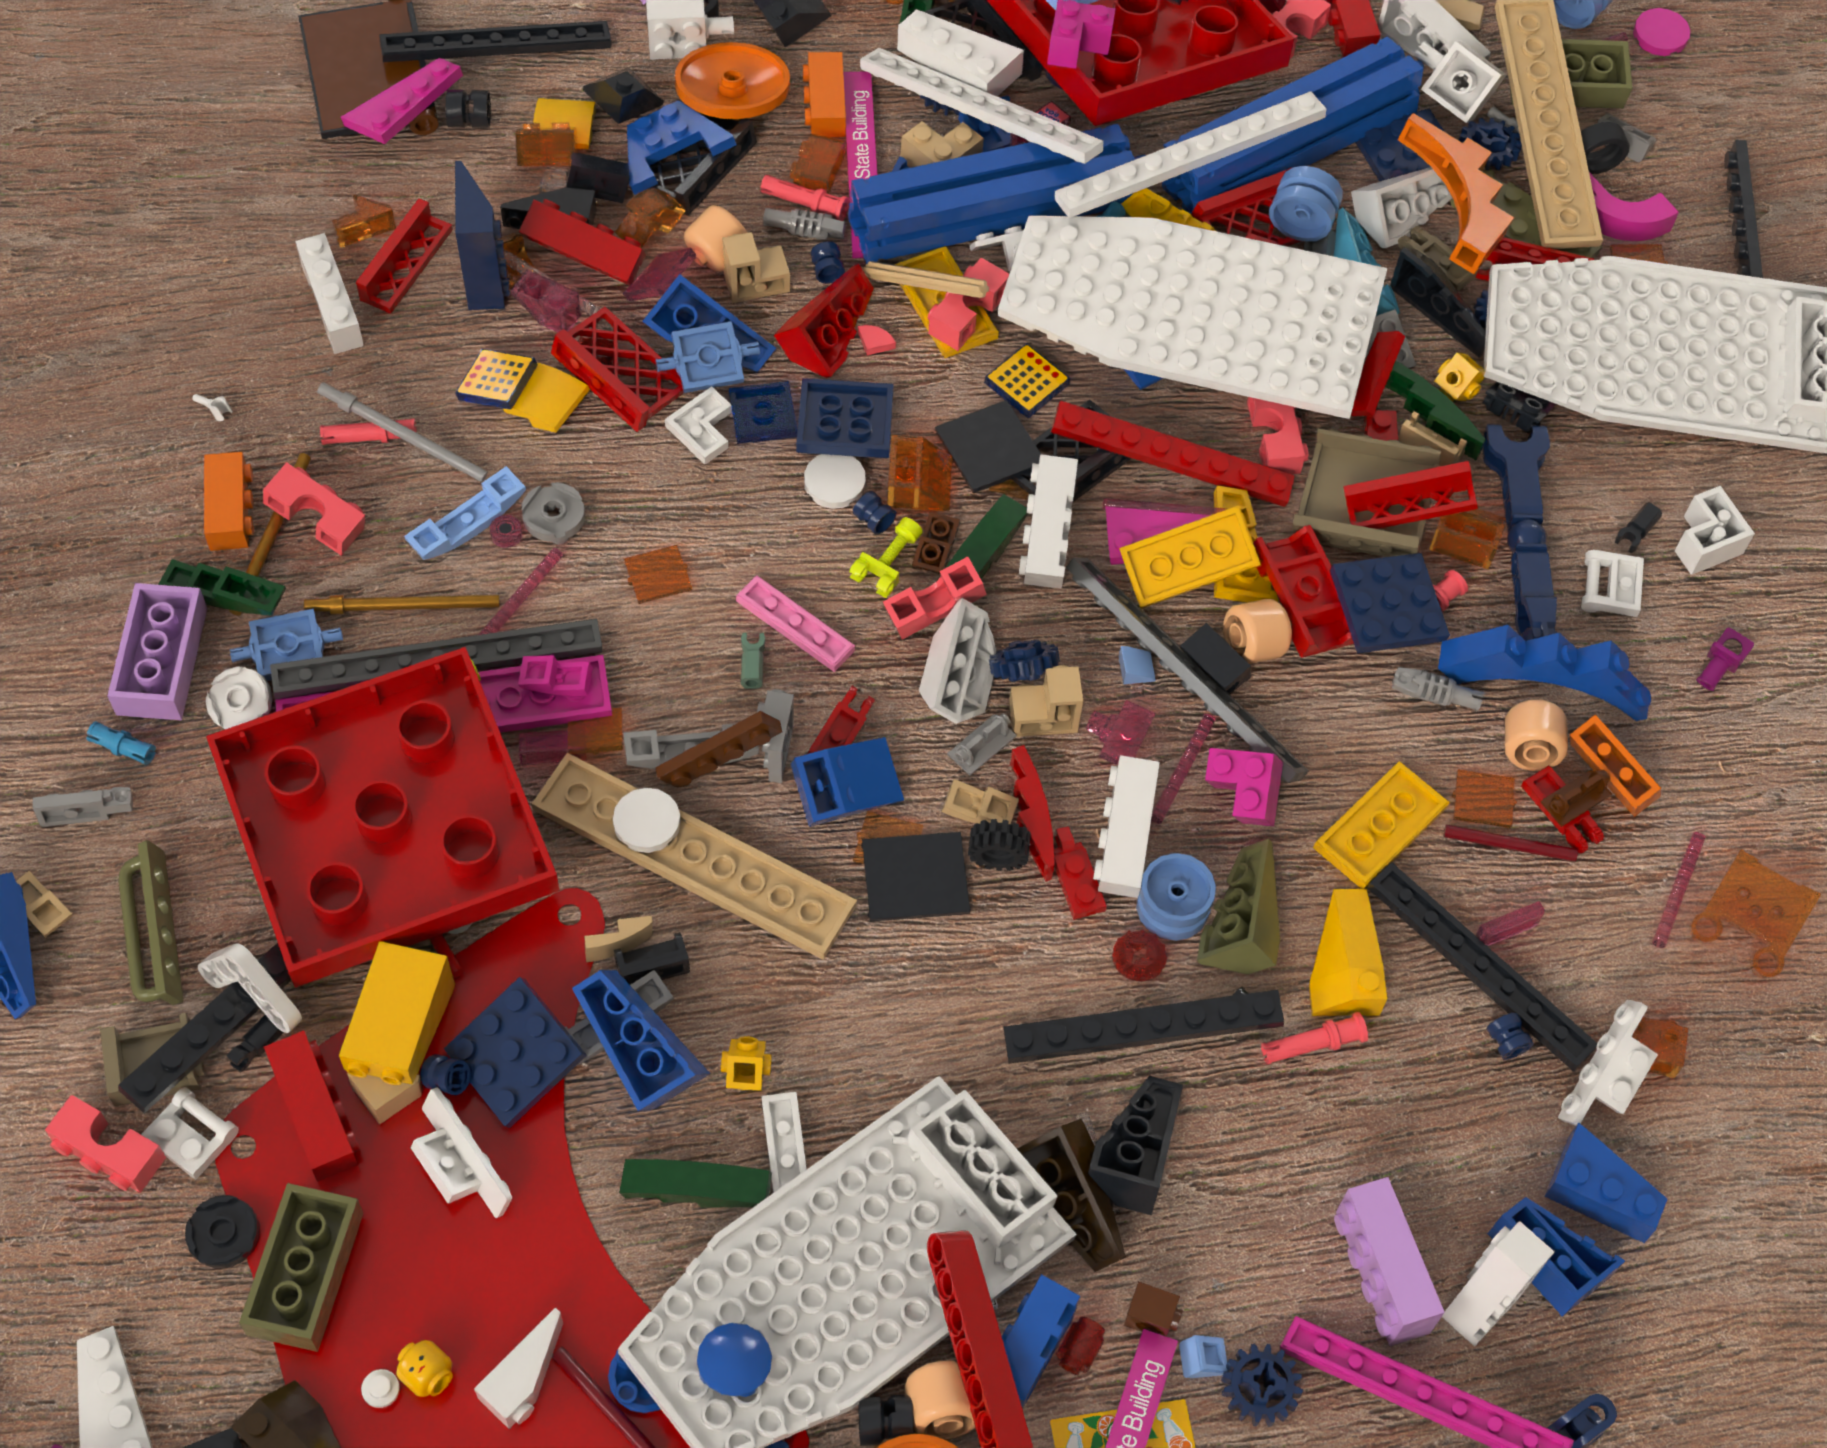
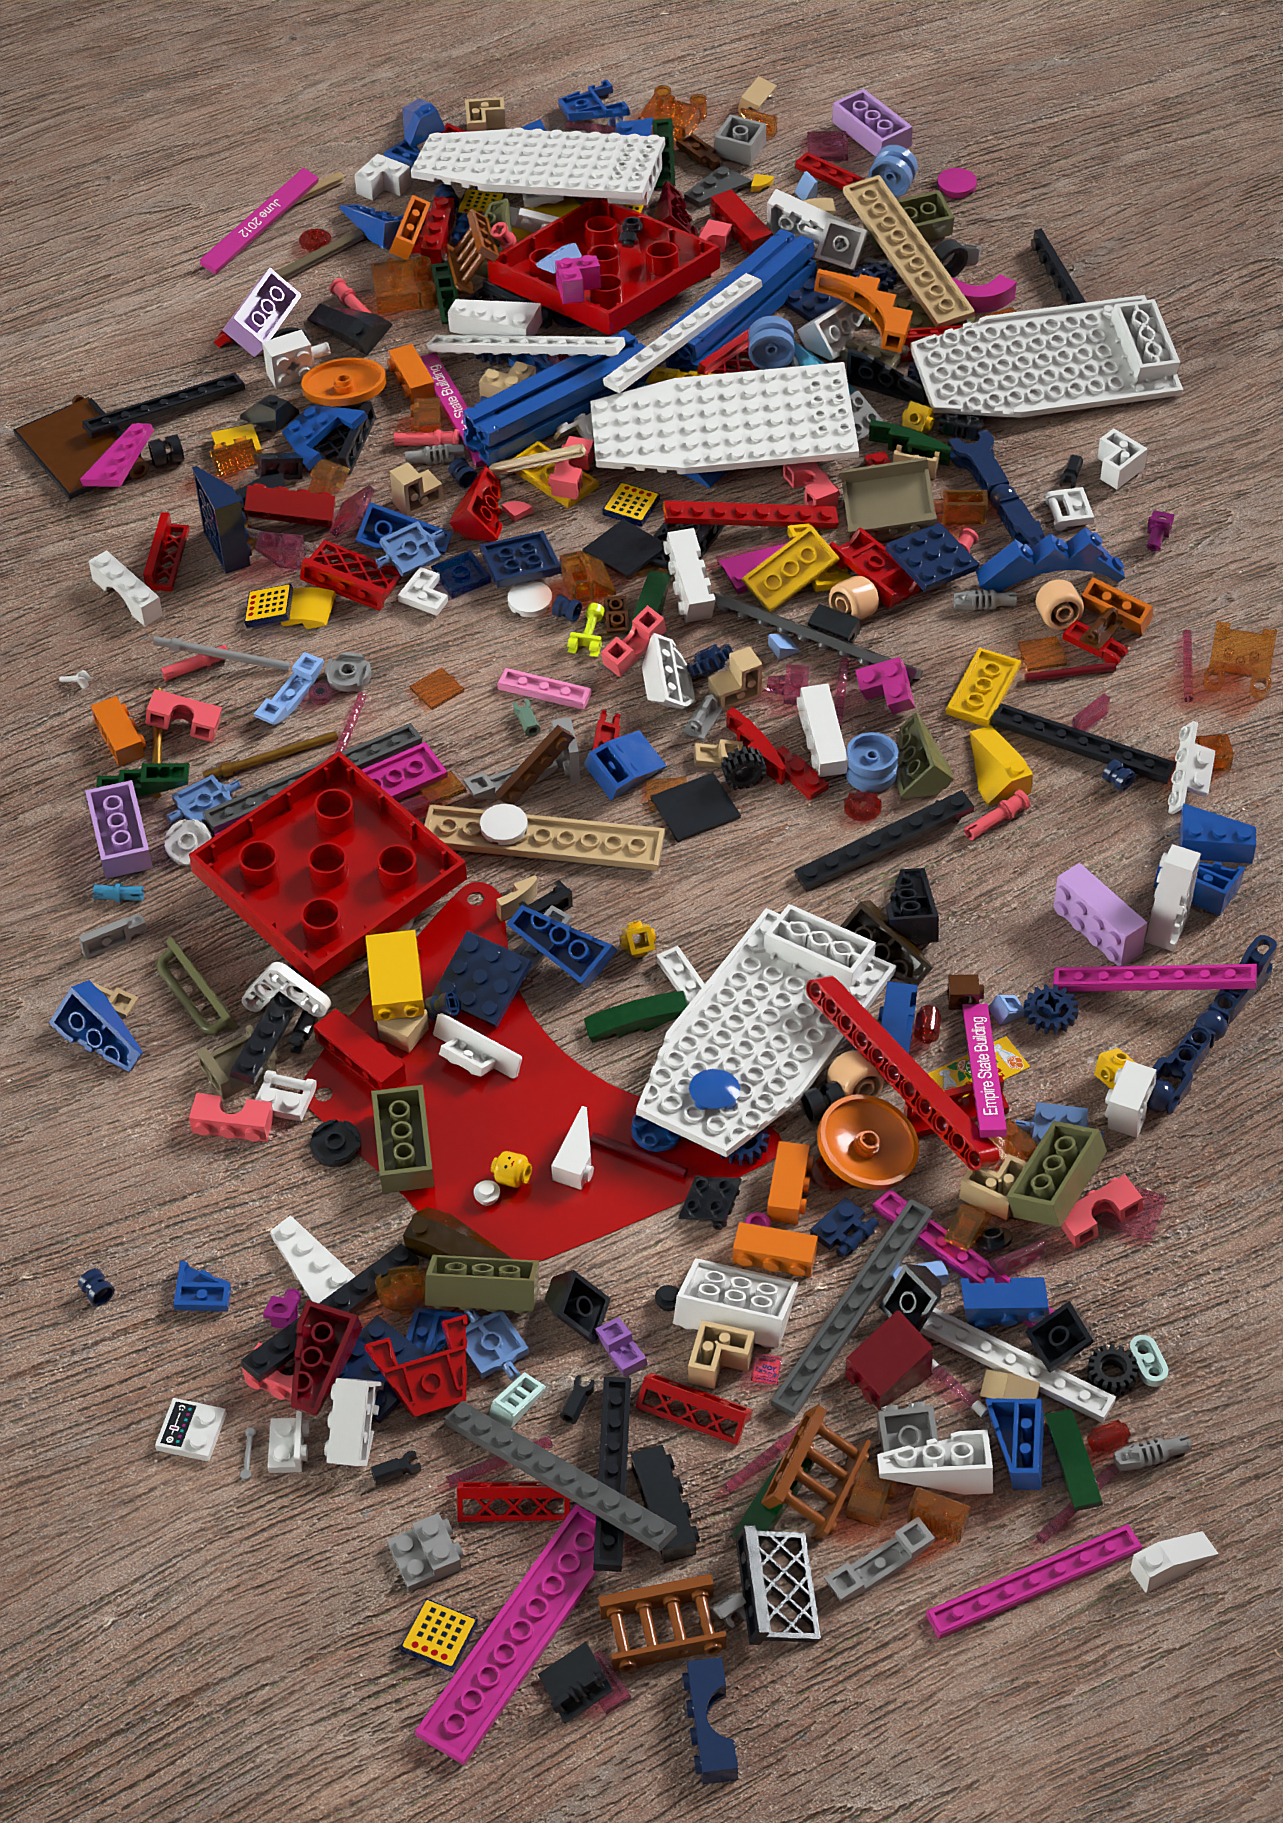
camera: 15 degrees left, 10 degrees down
(368, 221) = (127, 538): clear orange slope -> none
(553, 677) = (394, 763): dark pink slope -> none
(707, 233) = (377, 475): light nougat head -> none
(1376, 371) = (863, 424): red tile -> none
(1408, 491) = (916, 487): red fence -> none

